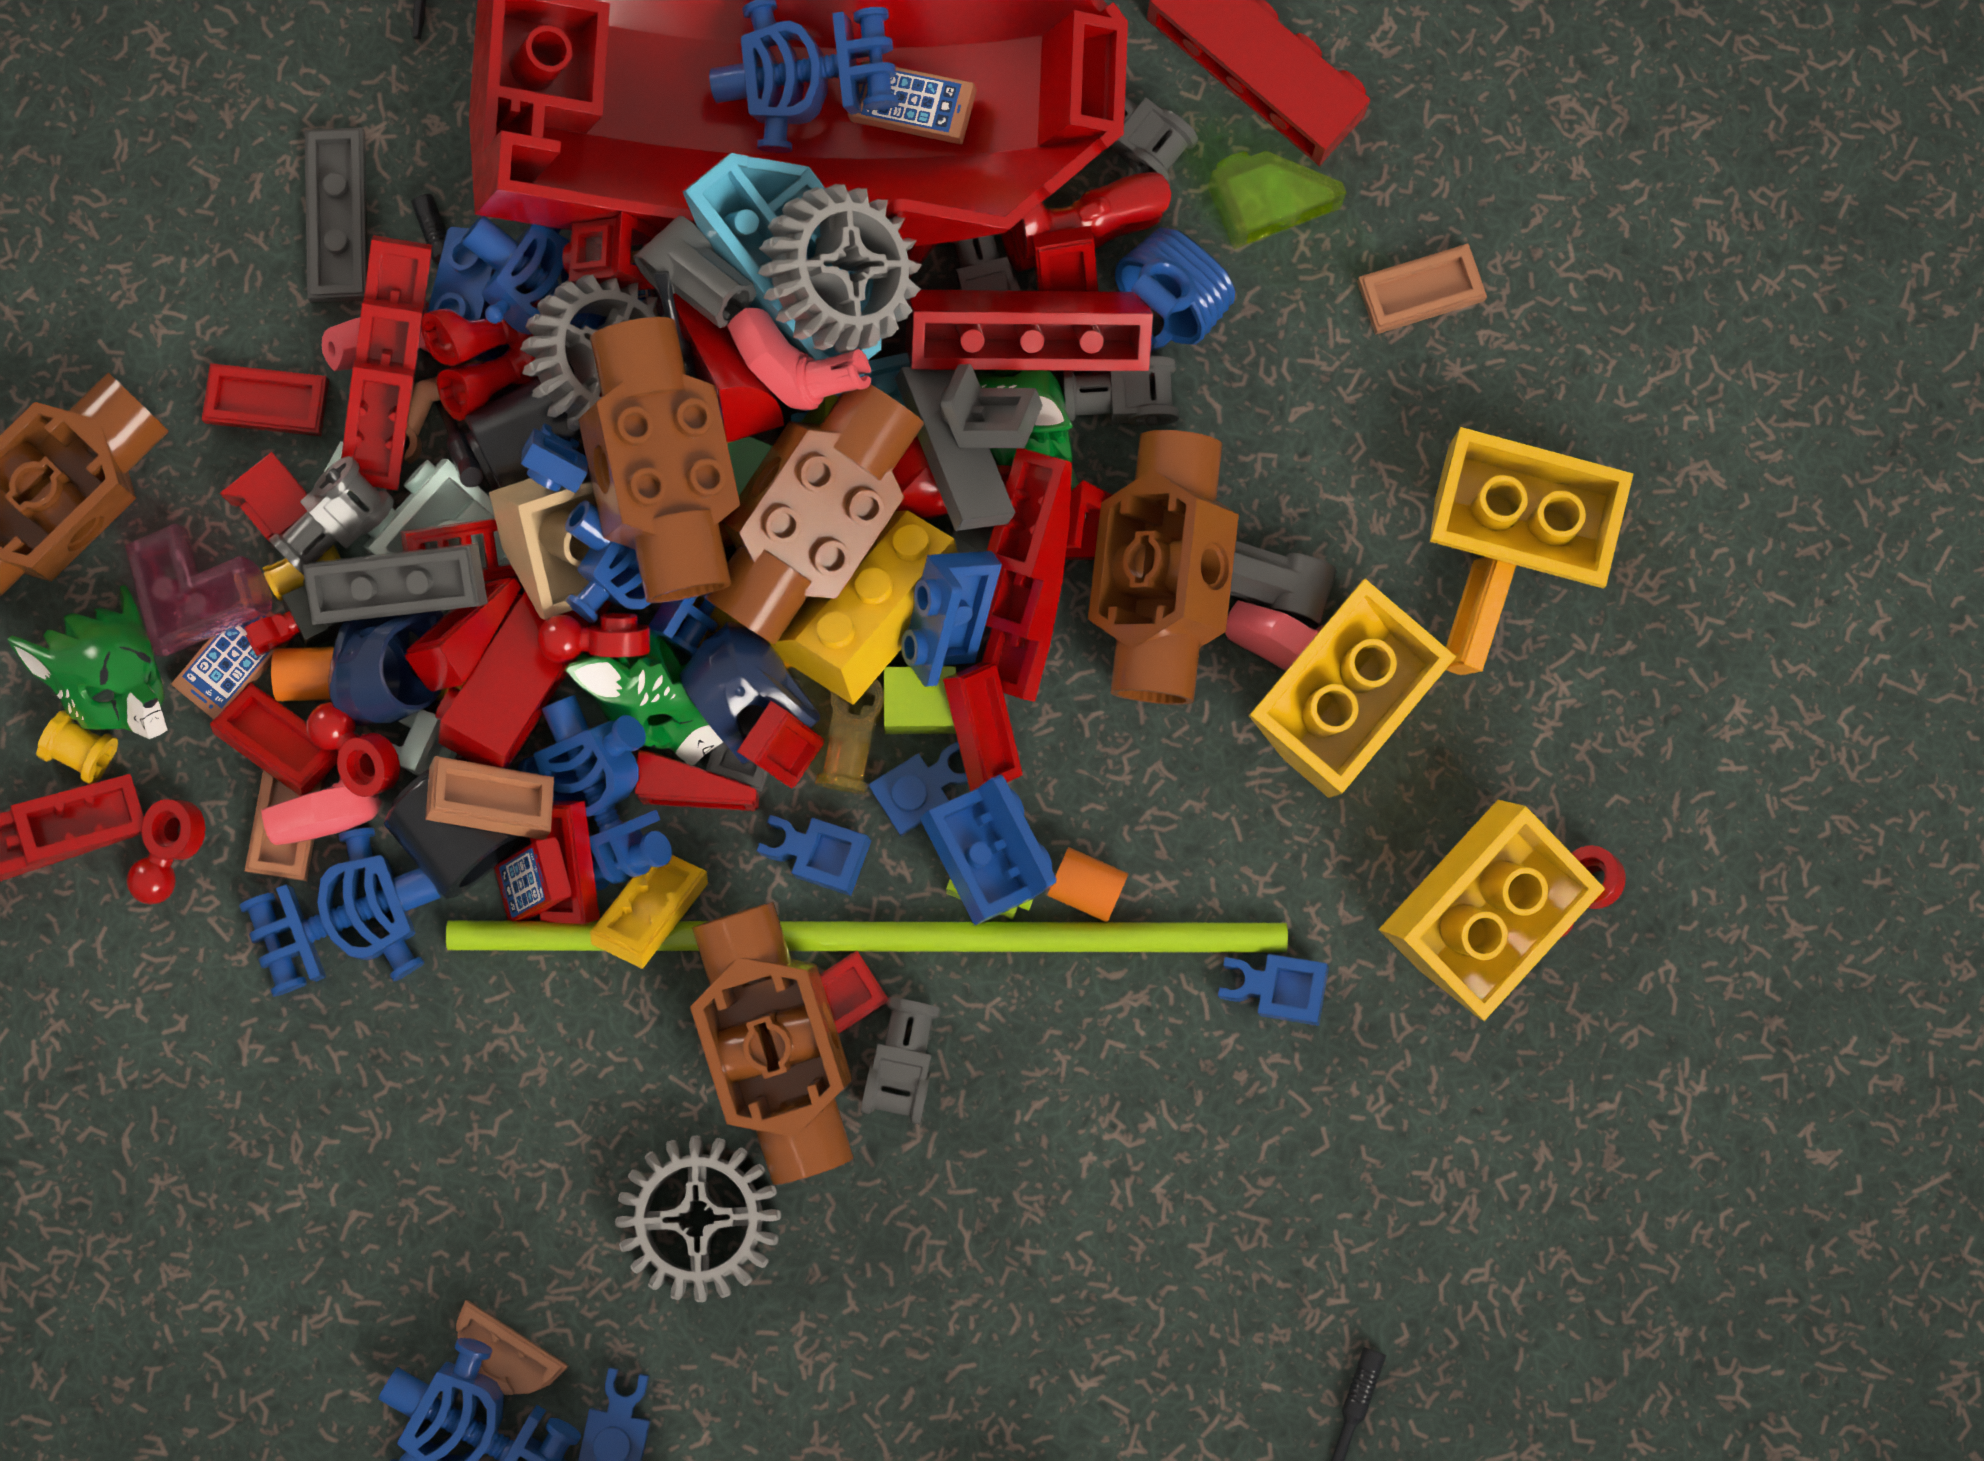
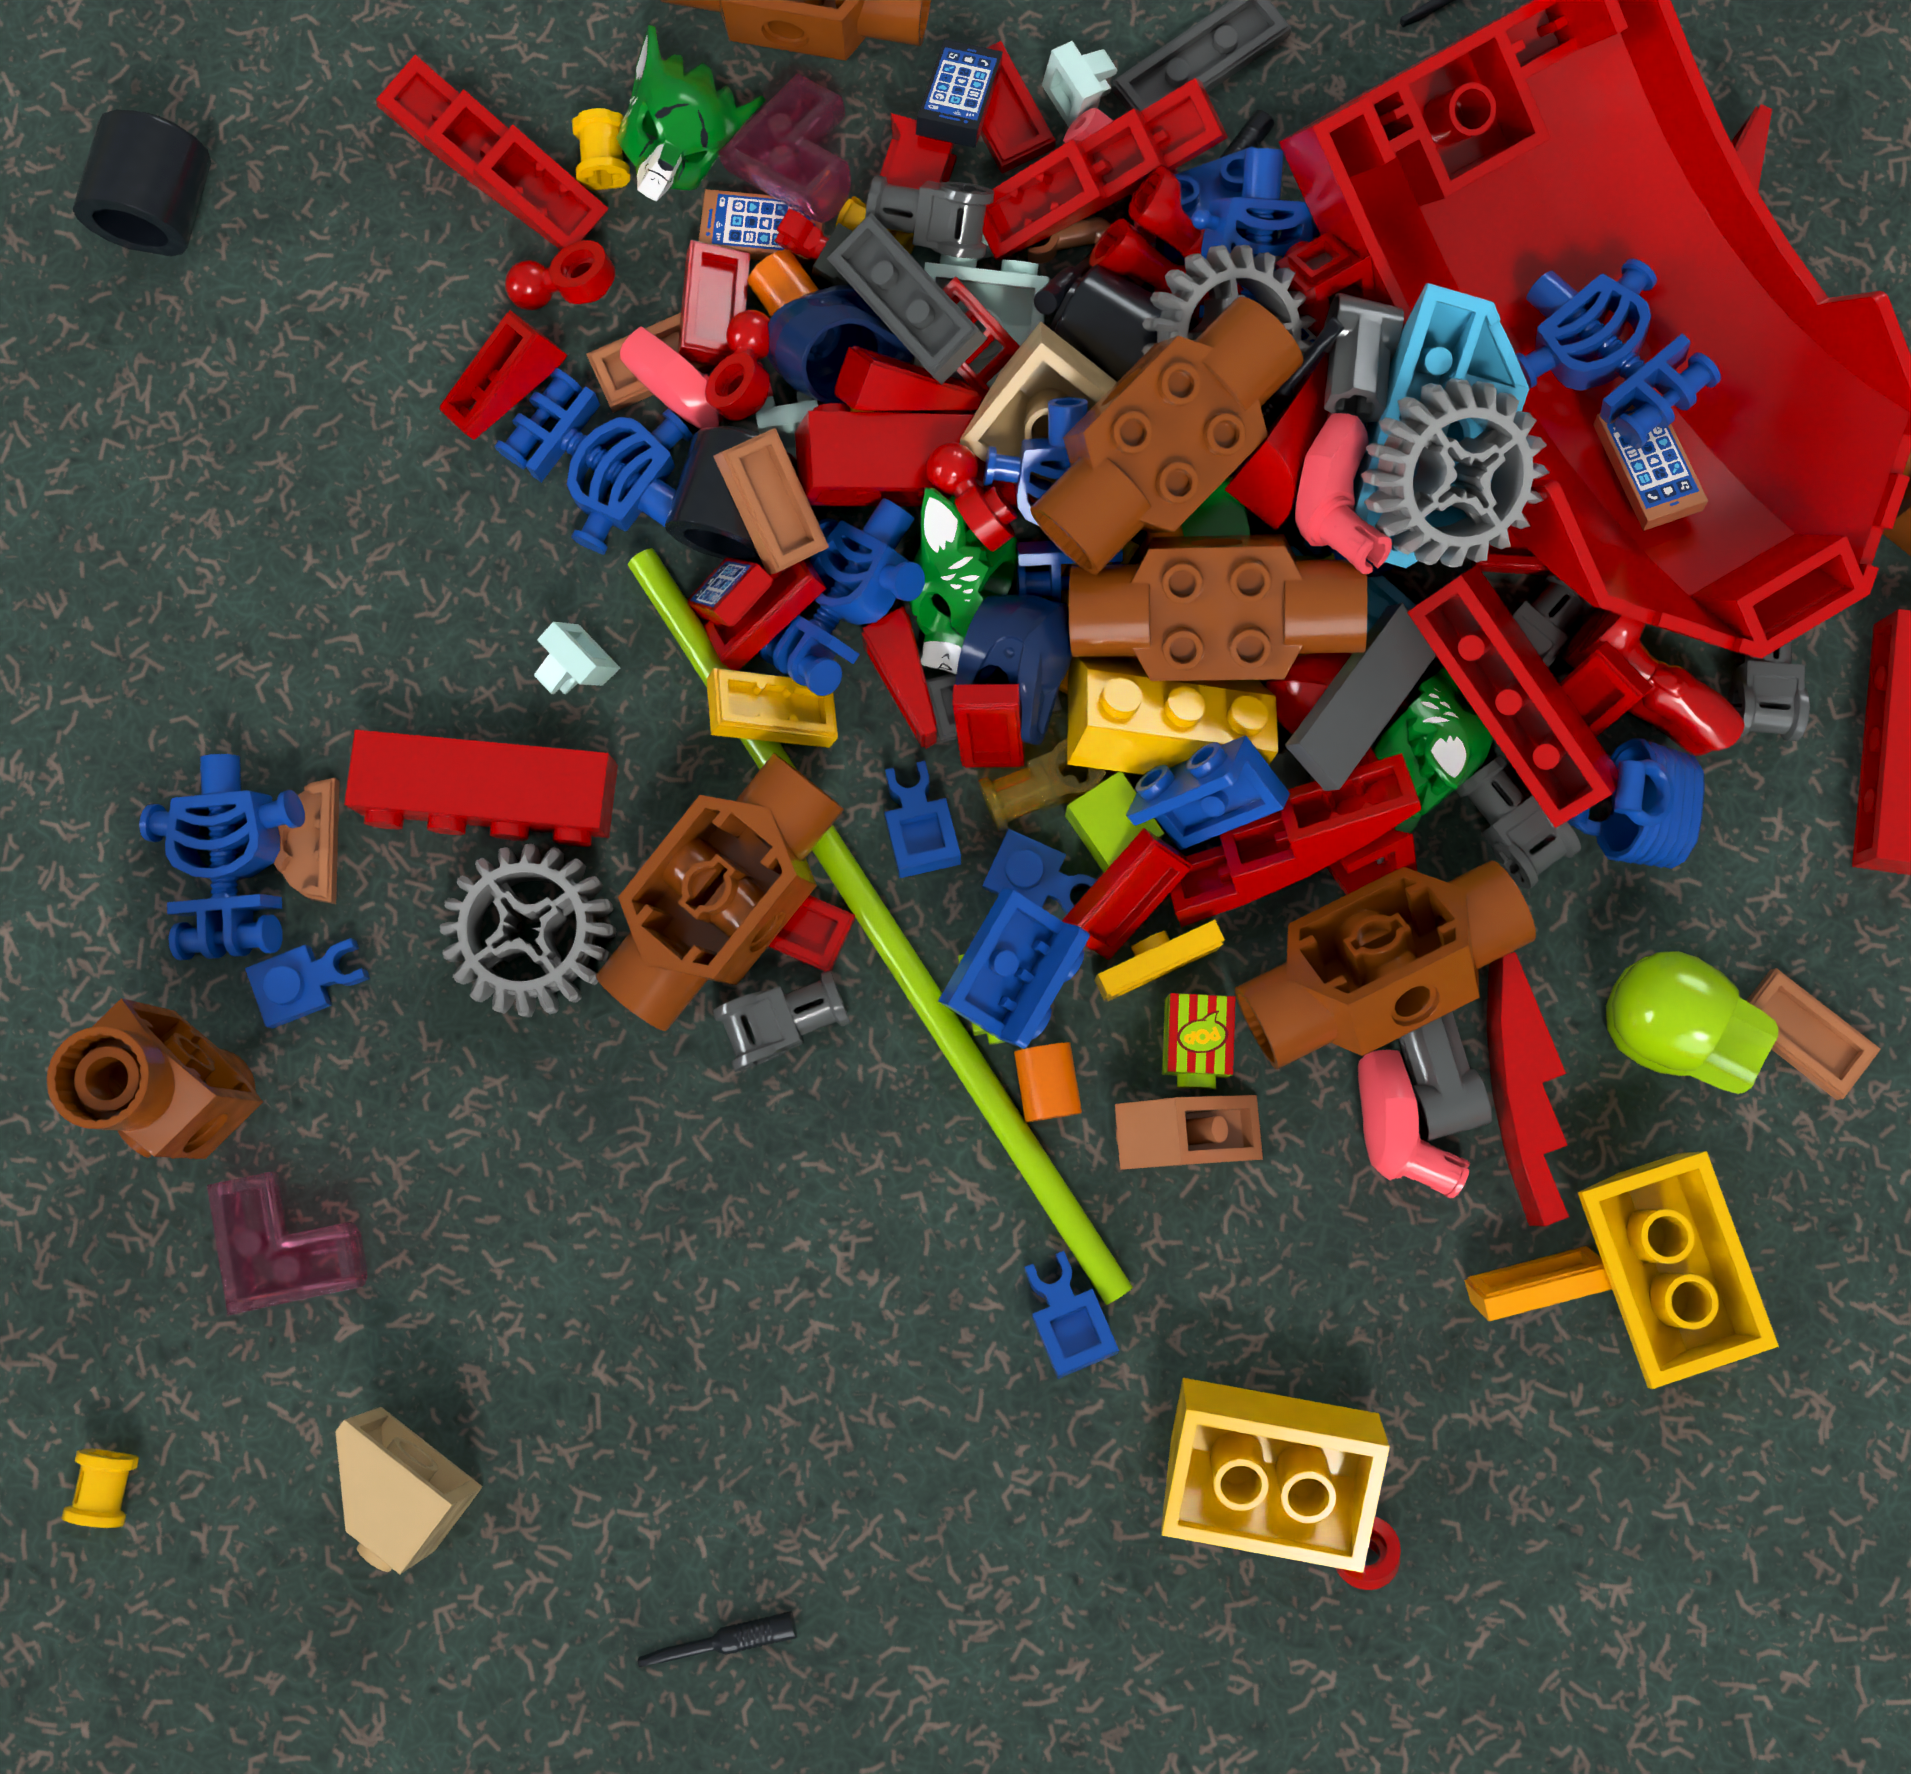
camera: 65 degrees right, 0 degrees up
(223, 918) = (501, 375): none -> red slope
(240, 427) = (959, 93): none -> tile
(292, 327) = (1077, 80): none -> light aqua tile
(499, 1041) = (572, 659): none -> light aqua tile
(554, 460) = (1103, 347): blue plate -> none
(554, 1182) = (481, 785): none -> red brick
(988, 415) = (1412, 706): dark grey bracket -> none
(1046, 736) = (1158, 957): none -> yellow plate
(1130, 746) = (1198, 1039): none -> brick
(1196, 802) = (1188, 1131): none -> nougat slope
(1269, 195) = (1795, 838): clear neon green slope -> none
(1307, 516) = (1520, 1061): none -> red slope
(1350, 689) = (1388, 1207): yellow slope -> none
(1357, 370) = (1688, 1022): none -> lime piece

